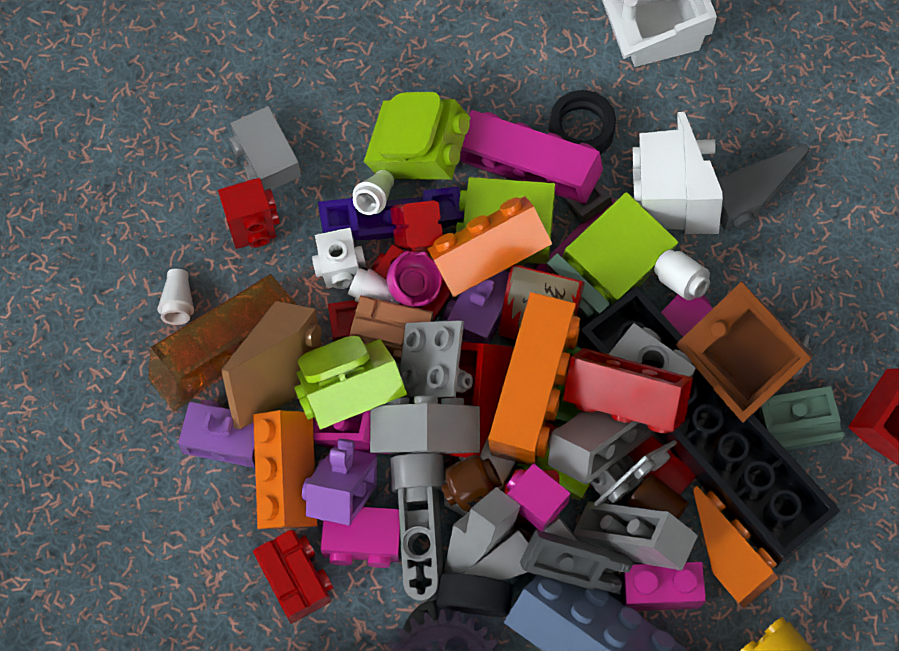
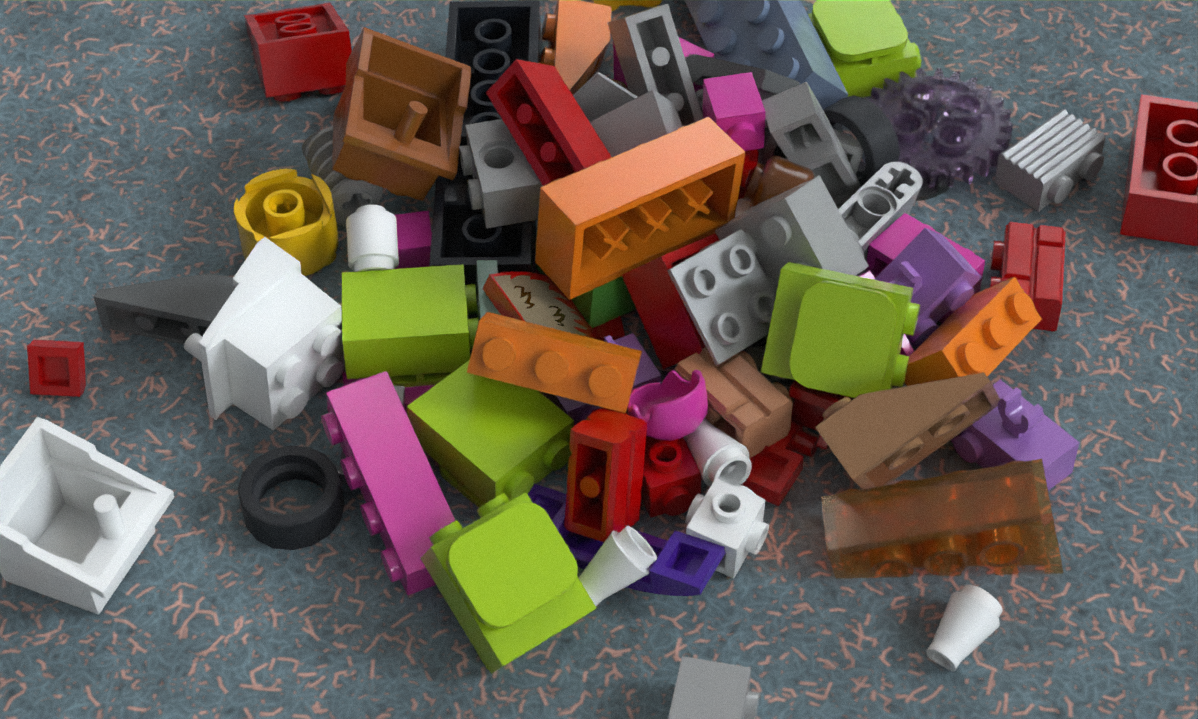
camera: 140 degrees left, 20 degrees down
(250, 213) = (798, 632): red brick -> none
(771, 258) = (292, 215): none -> yellow brick
(784, 105) = (56, 368): none -> red tile

